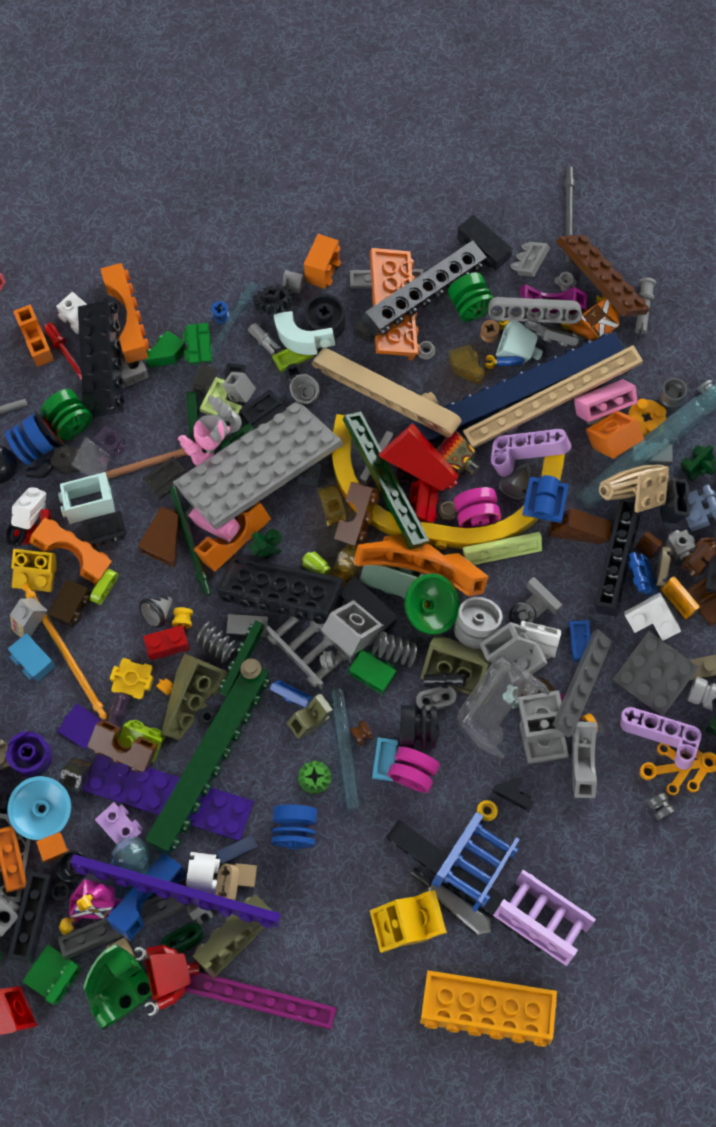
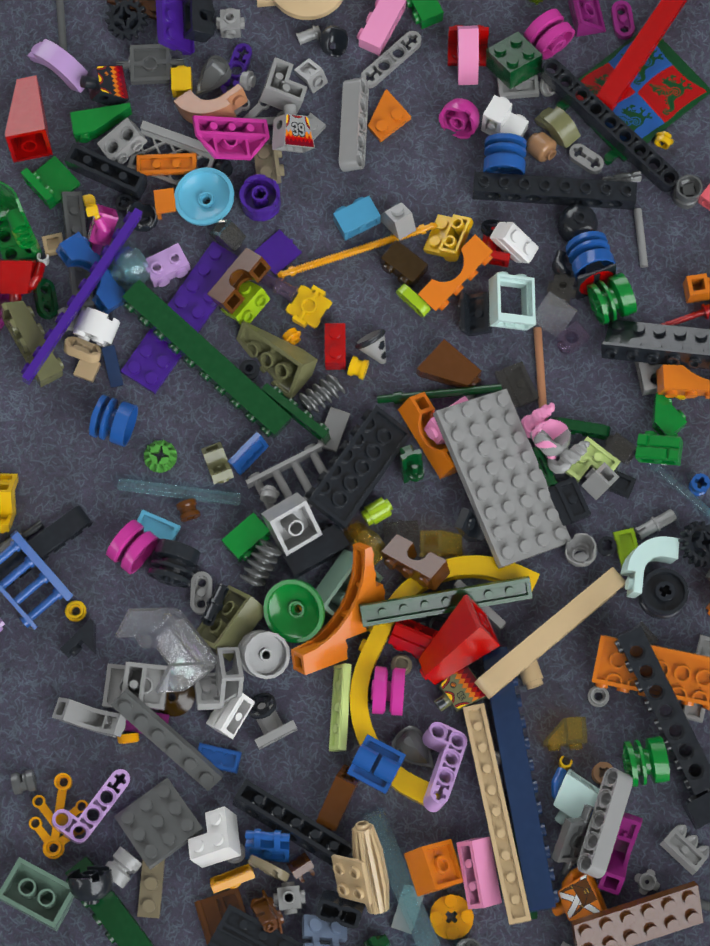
camera: 105 degrees right, 5 degrees up
(250, 668) = (279, 416): dark tan plate -> none

